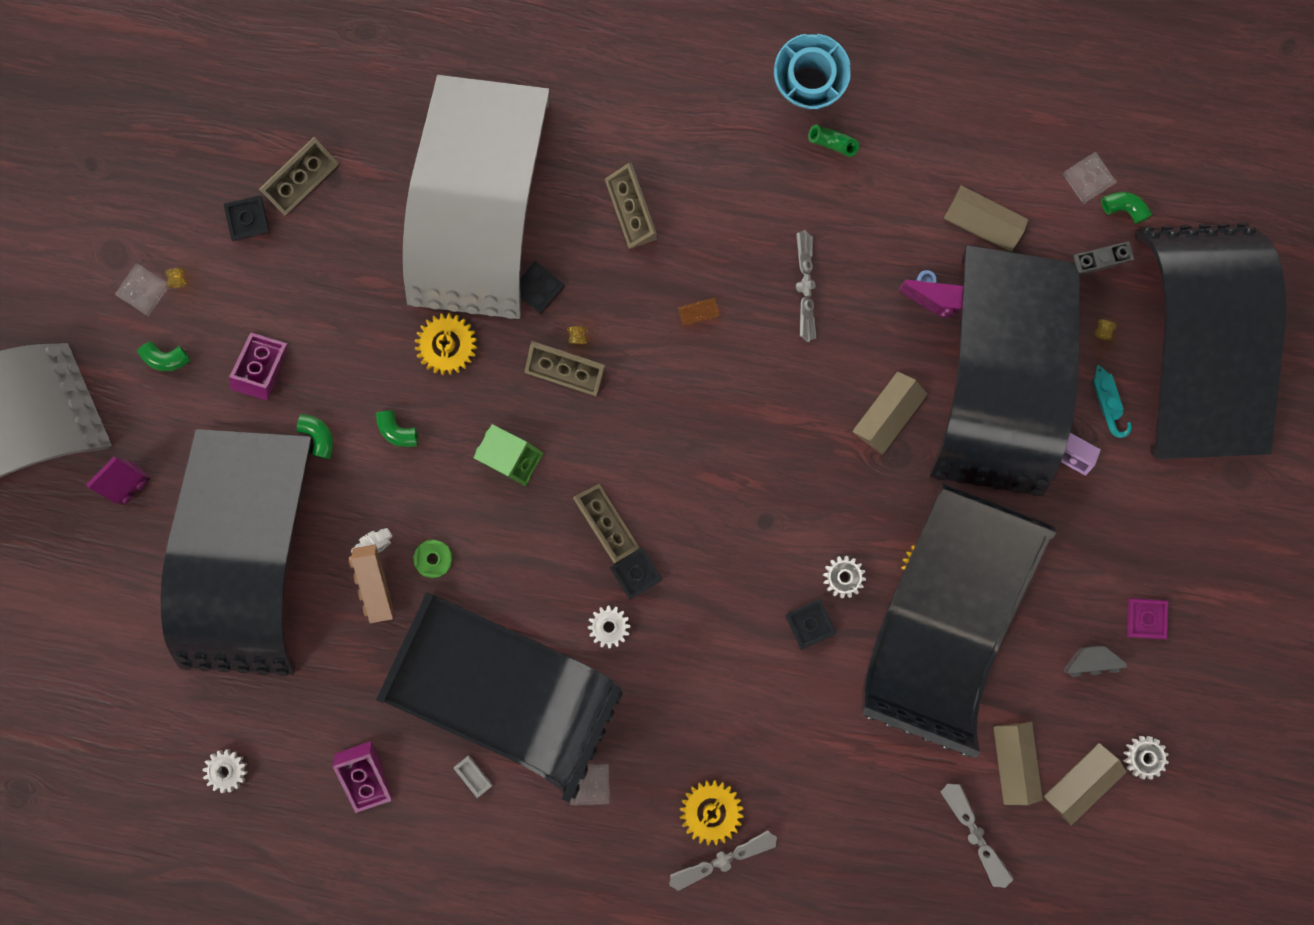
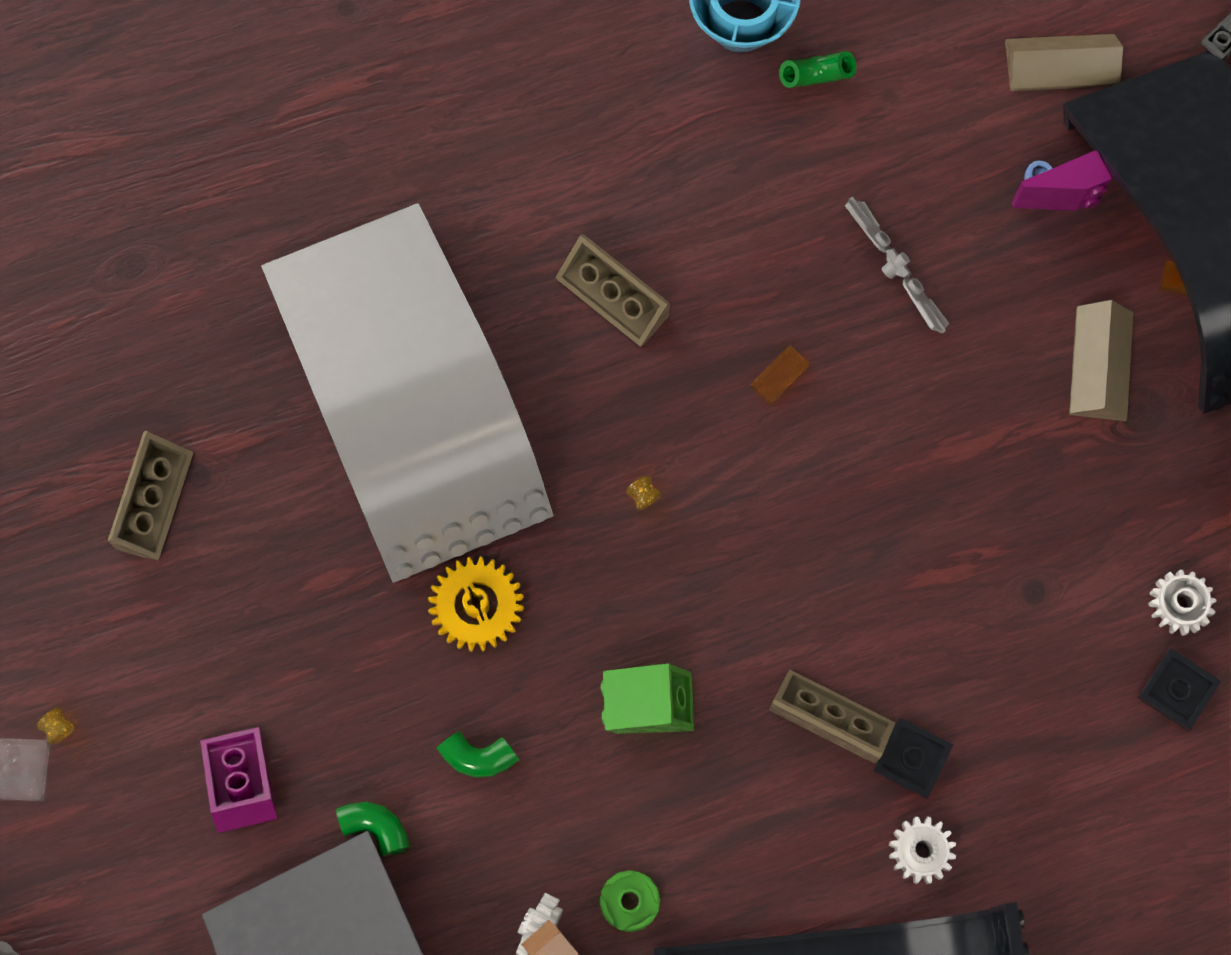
camera: 30 degrees left, 10 degrees down
(163, 361) = (100, 849): green cylinder -> none
(246, 218) = (109, 592): black plate -> none
(539, 287) = (558, 460): black plate -> none
(564, 368) = (653, 544): dark tan slope -> none

